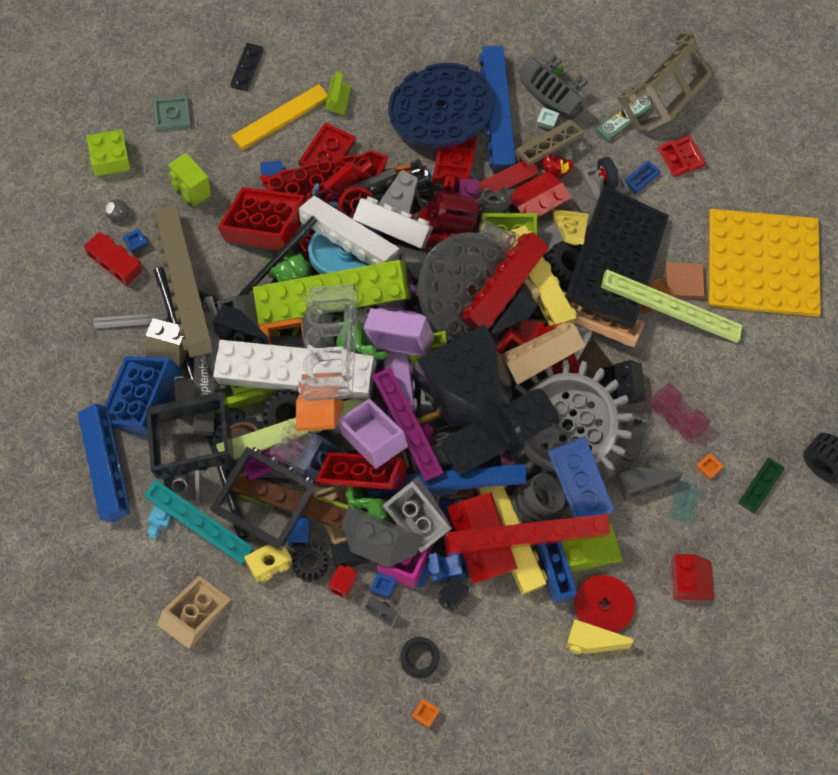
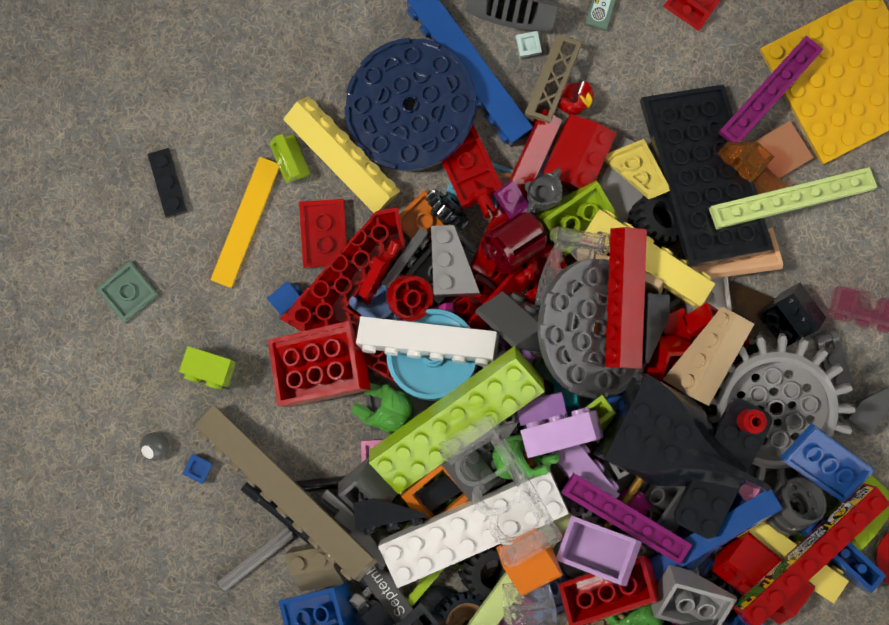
camera: 30 degrees left, 20 degrees up
(108, 152) = (96, 386): lime brick -> none
(113, 258) = (190, 504): red brick -> none
(301, 232) = (377, 369): black bar -> none
(373, 108) = (341, 154): none -> light yellow brick
(392, 222) = (466, 299): white brick -> none
(540, 401) = (745, 419): none -> red brick
(606, 174) = (633, 82): plate -> none
(653, 259) = (746, 158): none -> clear orange slope
(657, 172) = (663, 70): blue tile -> none
(698, 232) = (771, 90): none -> magenta plate

